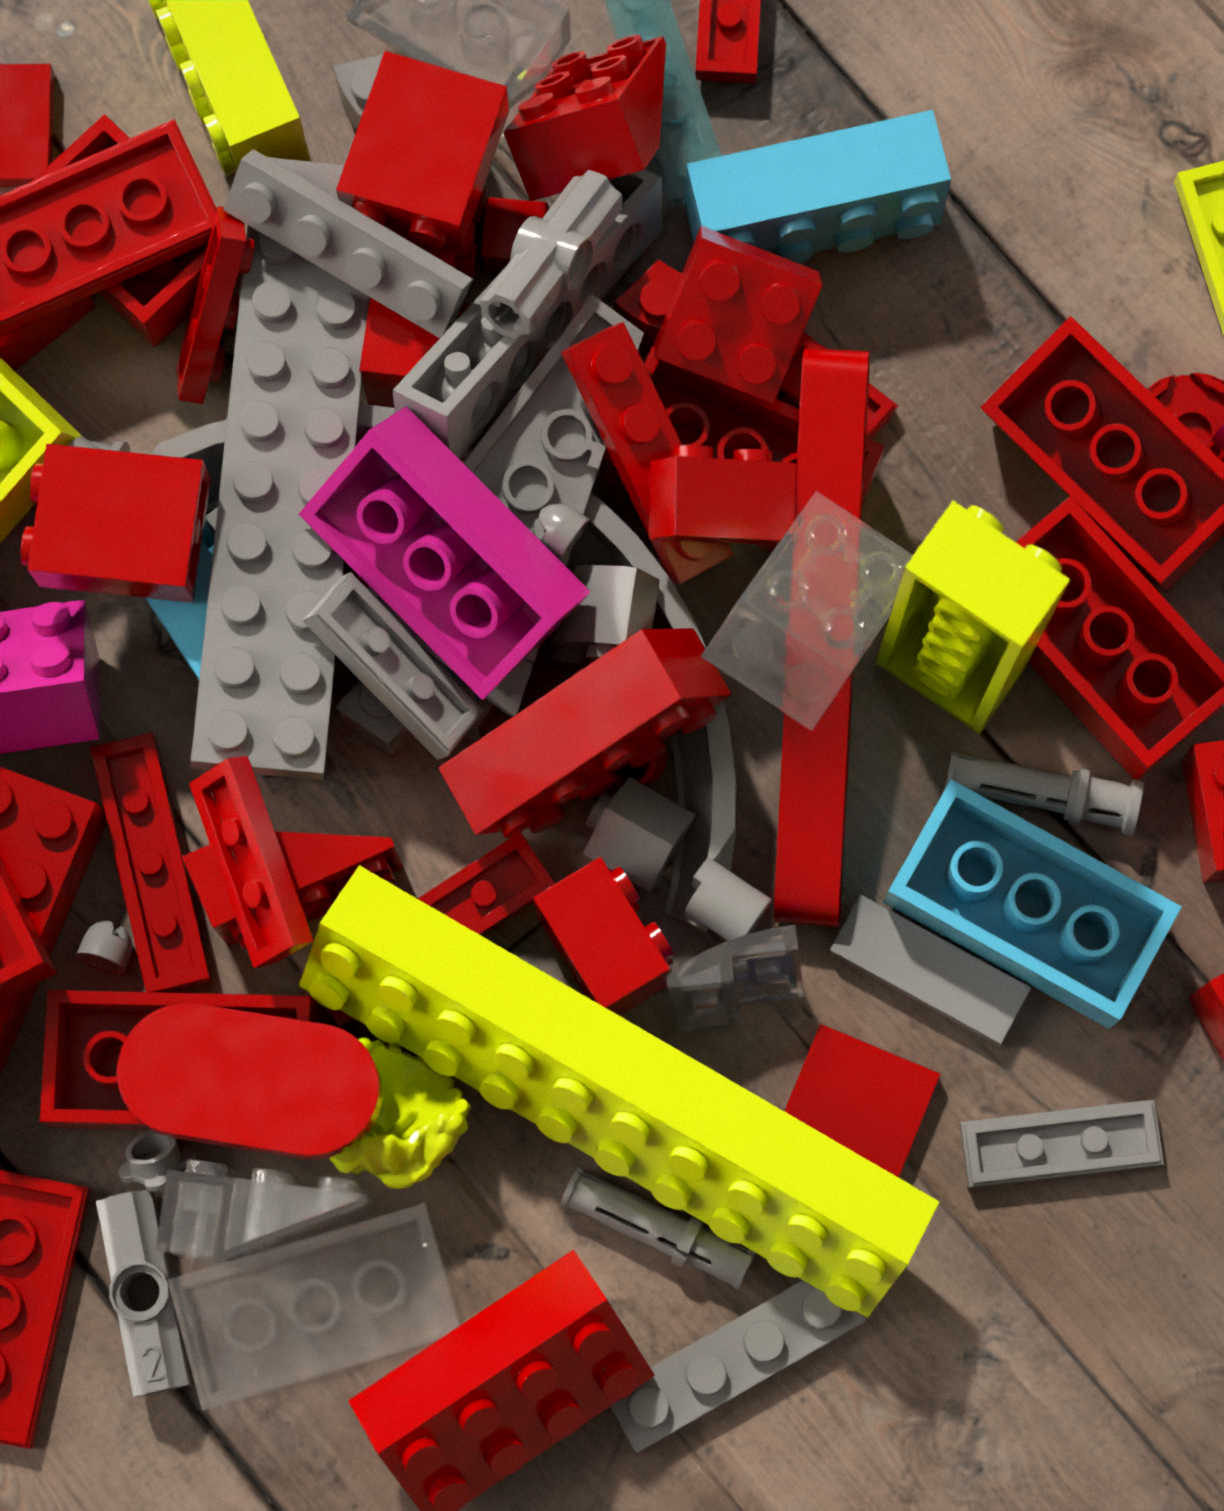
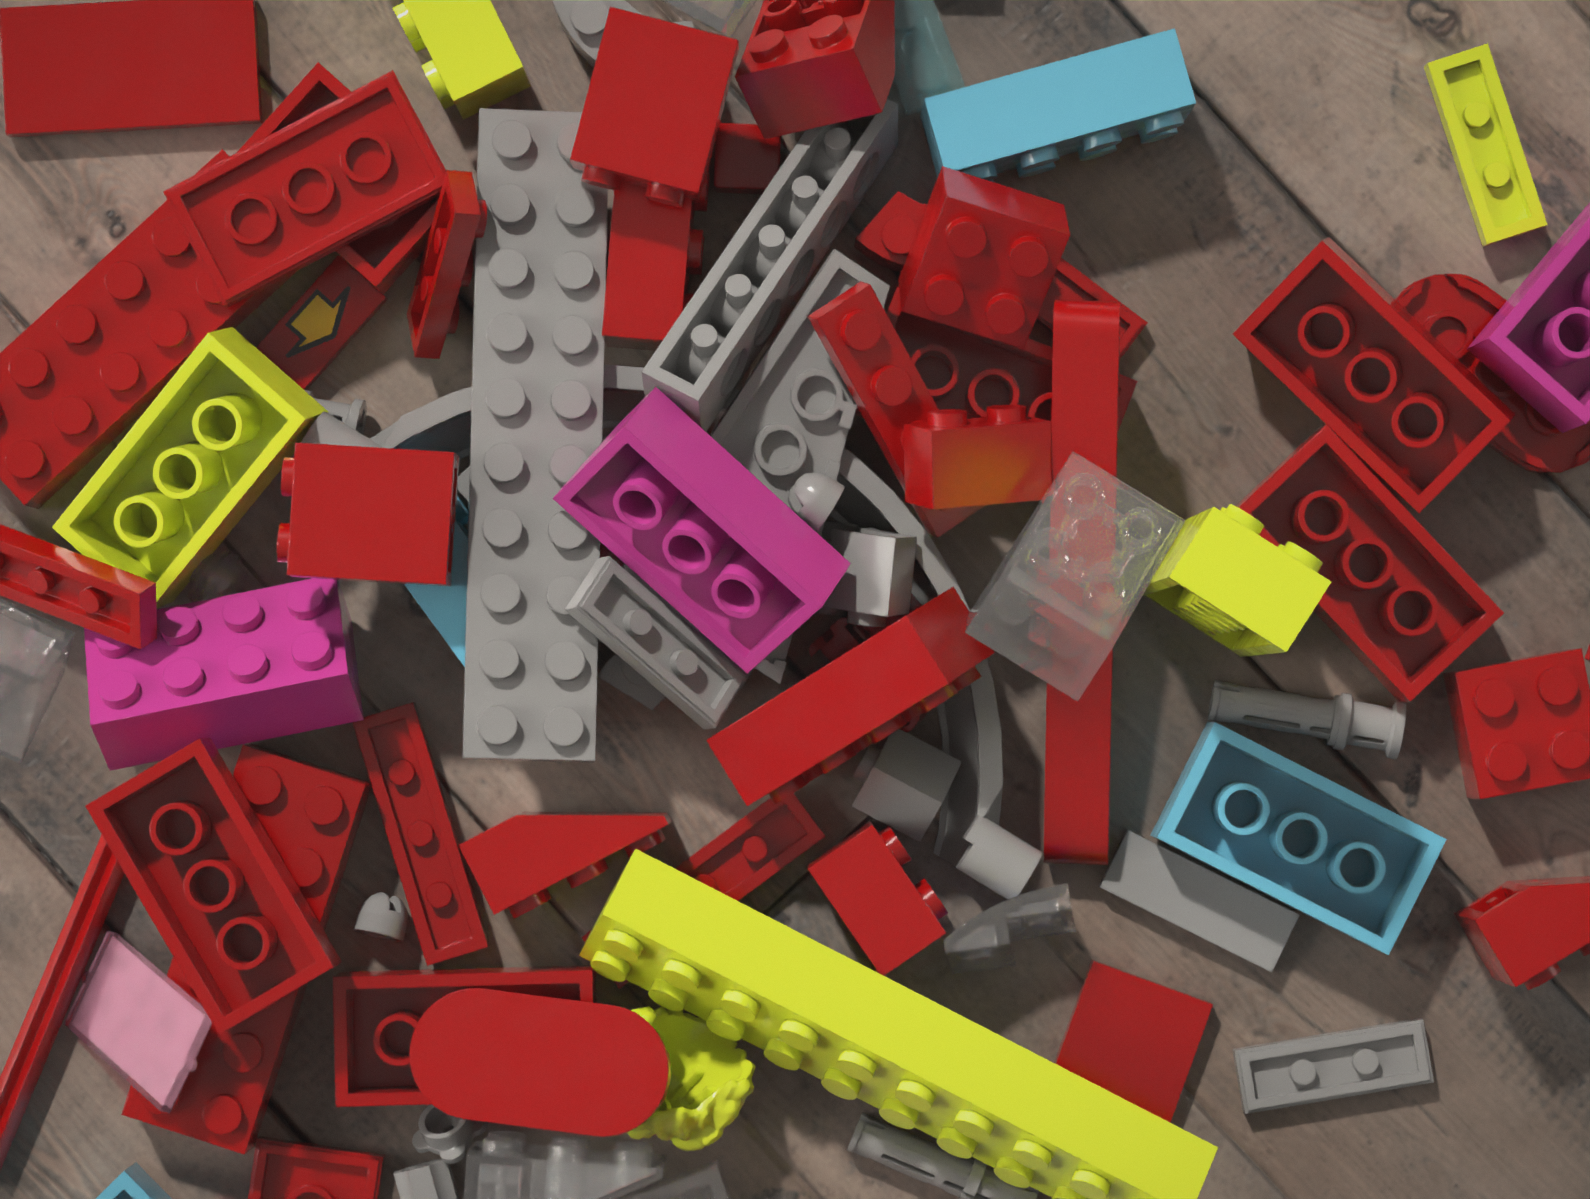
camera: 10 degrees left, 10 degrees up
(95, 368) = (322, 323): none -> red tile
(250, 861) = (529, 853): red plate -> none
(347, 243) = (583, 210): light grey plate -> none
(551, 255) = (793, 212): light grey piece -> none

